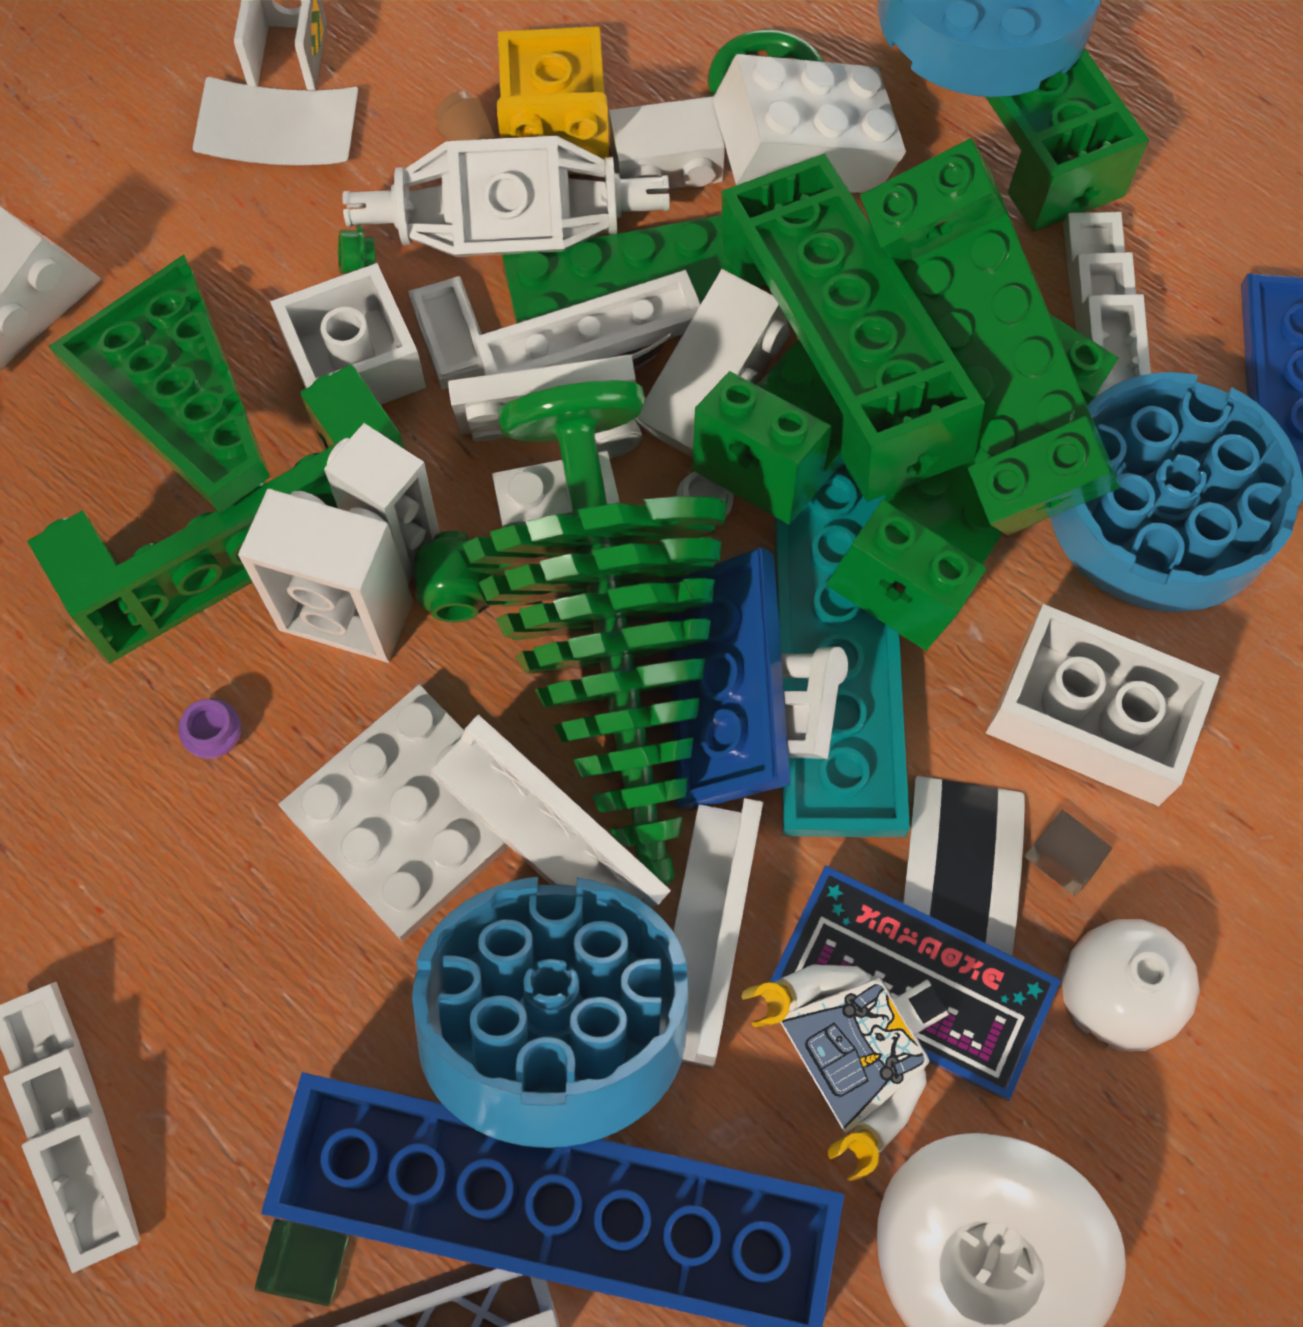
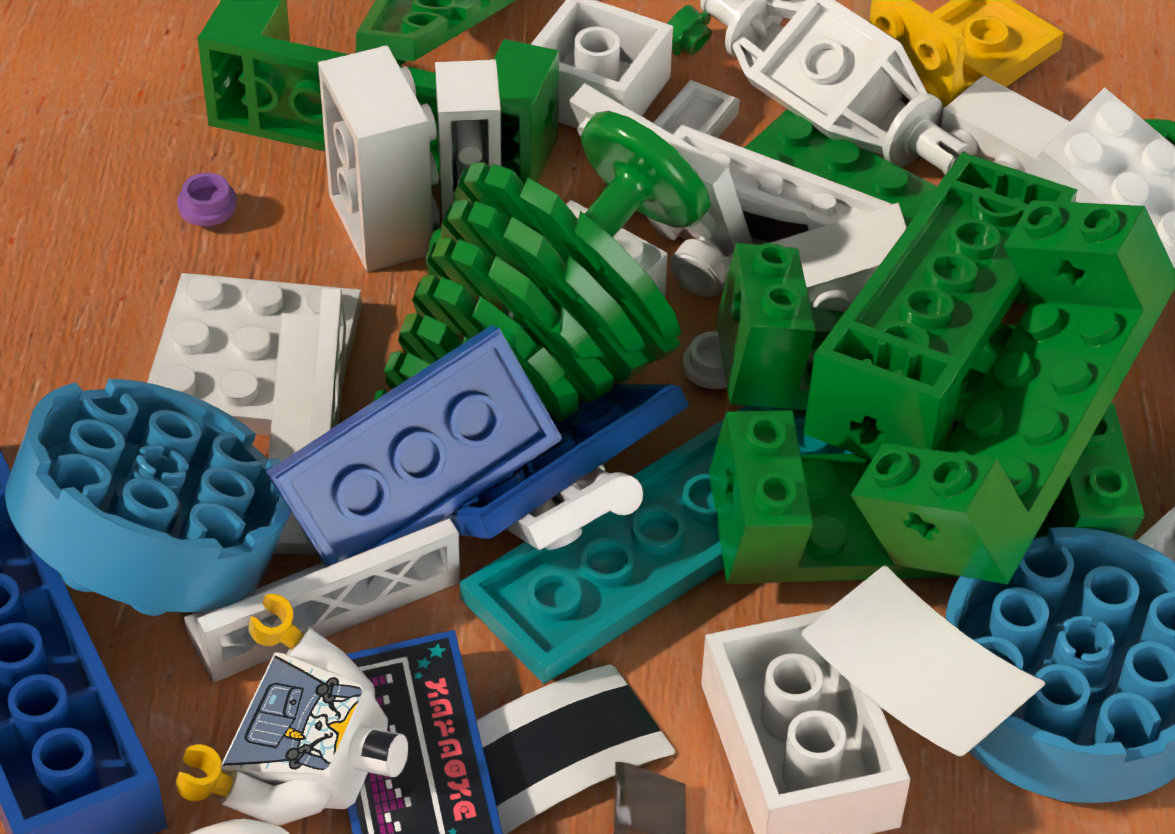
camera: 50 degrees right, 20 degrees down
(686, 782) = (417, 451): none -> tile
(1139, 594) = (918, 664): none -> white sticker

